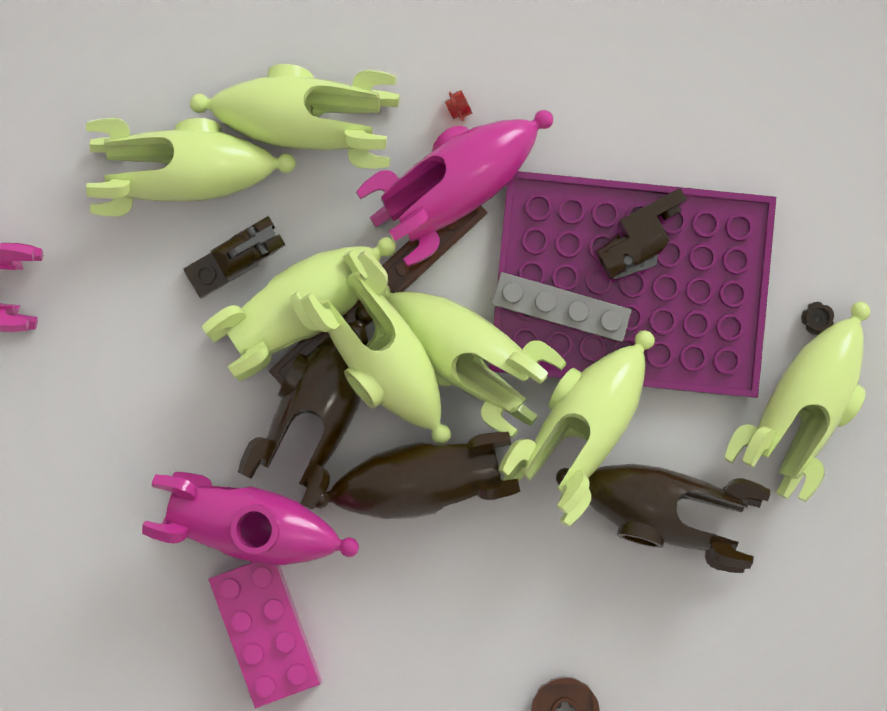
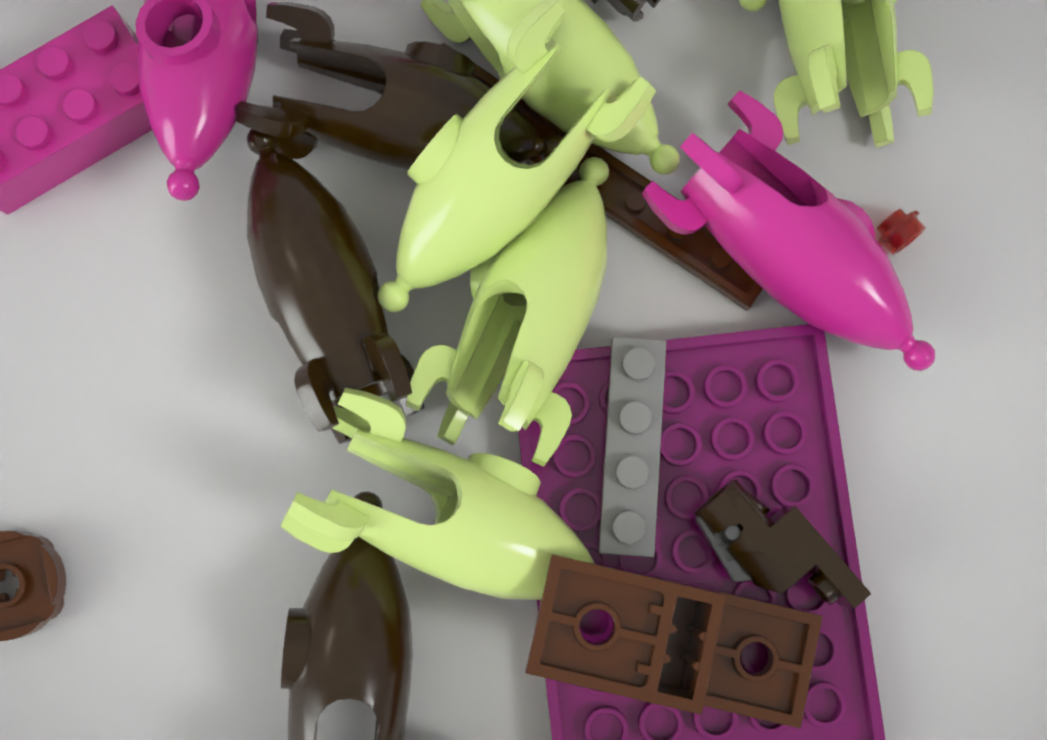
camera: 80 degrees right, 5 degrees down
(684, 308) = (673, 643): none -> reddish brown bracket

